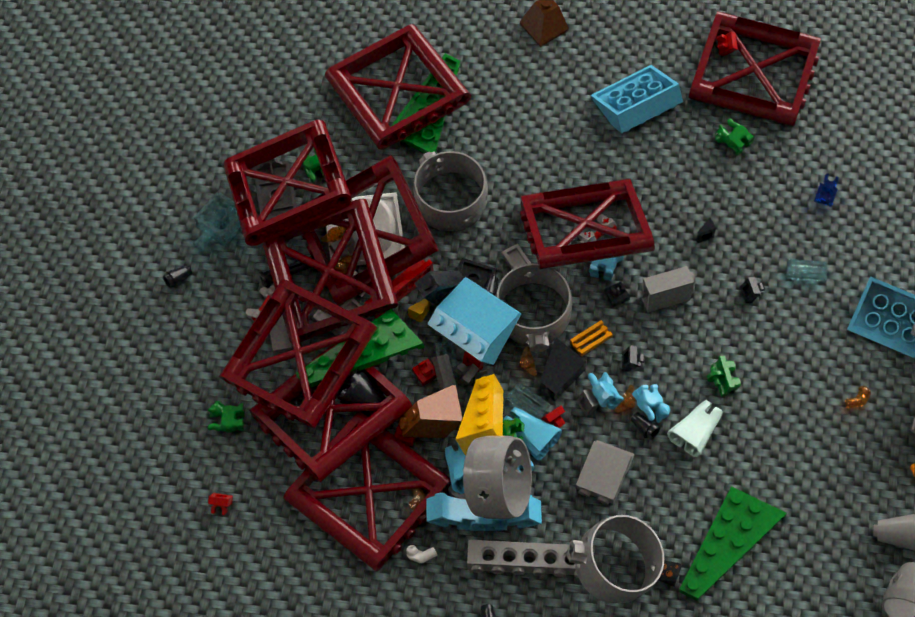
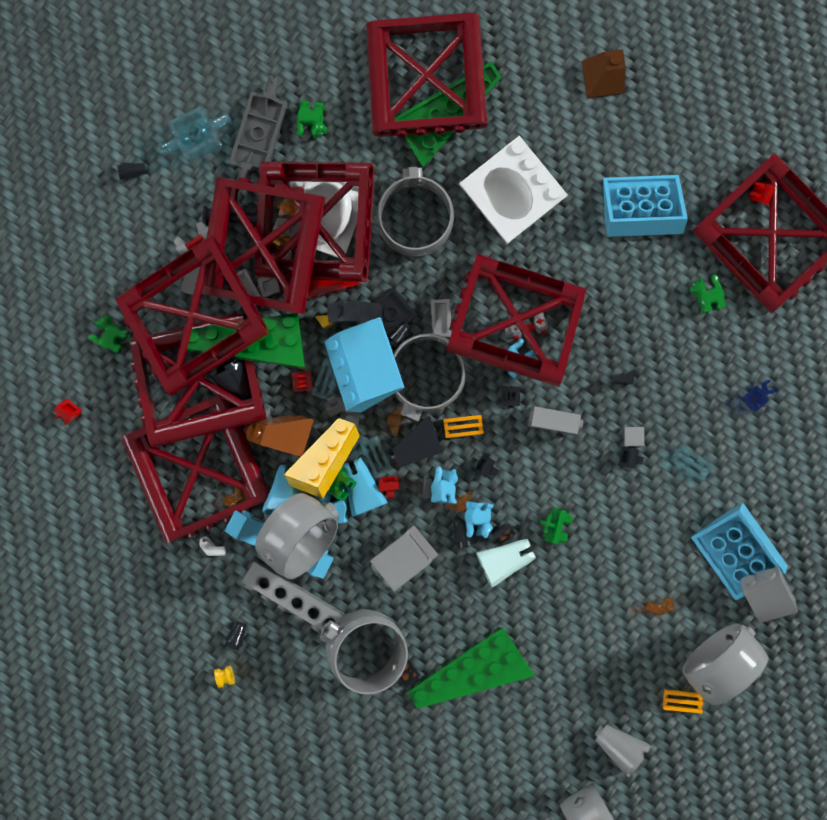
camera: 25 degrees right, 25 degrees up
(335, 197) = (299, 177): dark red piece -> none
(444, 371) = (314, 397): dark grey axle -> none
(521, 132) = (513, 189): none -> white piece
(681, 406) = (503, 533): none -> black slope
(742, 272) = (633, 436): none -> light grey tile

